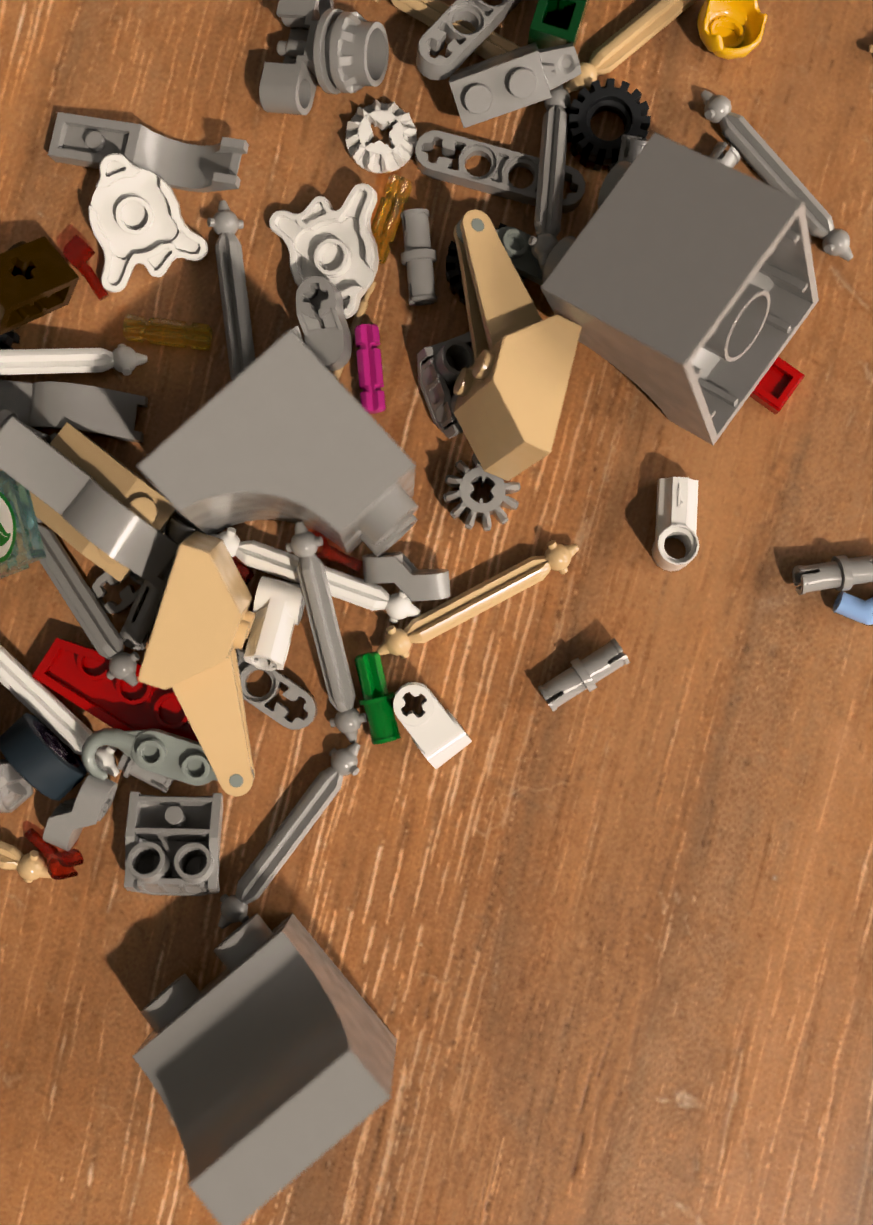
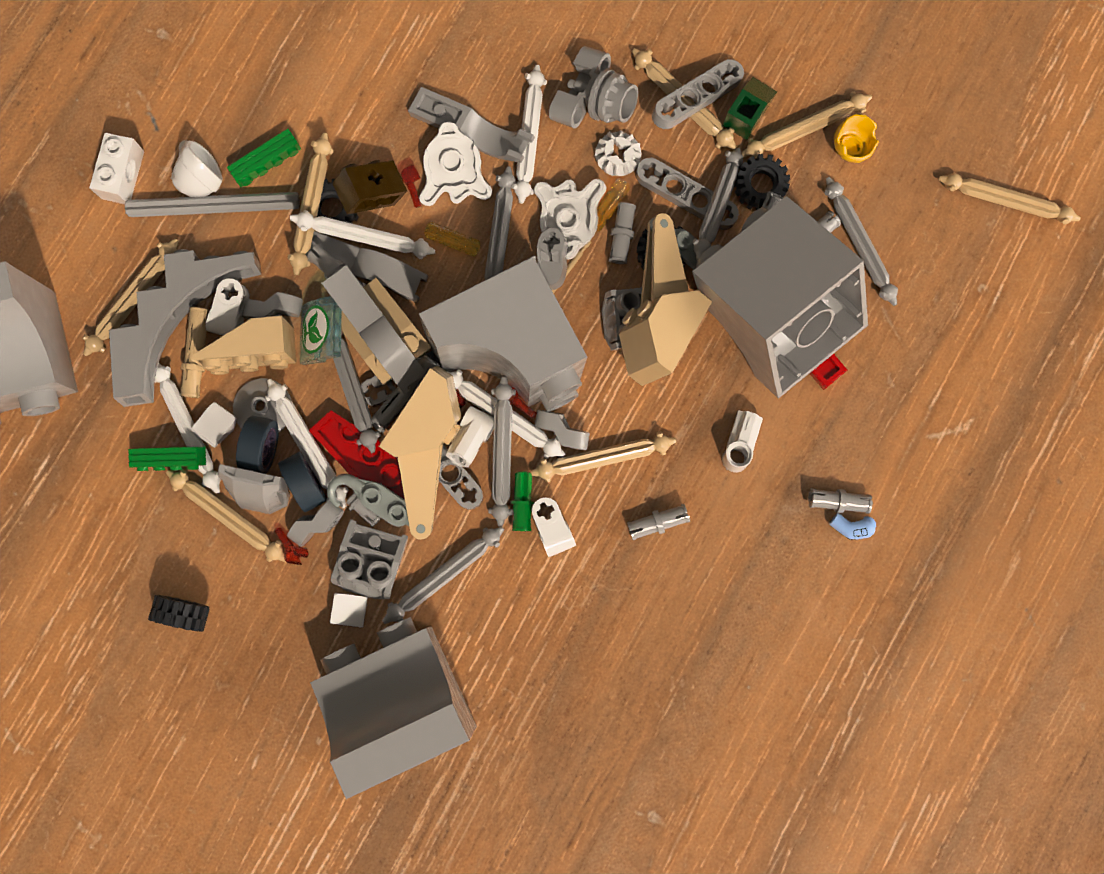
camera: 10 degrees right, 5 degrees down
(164, 923) = (348, 610): none -> white slope
(238, 126) = (530, 123): none -> white wheel
(370, 368) = (573, 293): dark pink axle -> none
(479, 509) = (634, 394): light grey gear -> none
(511, 81) = (708, 141): light grey hinge -> none

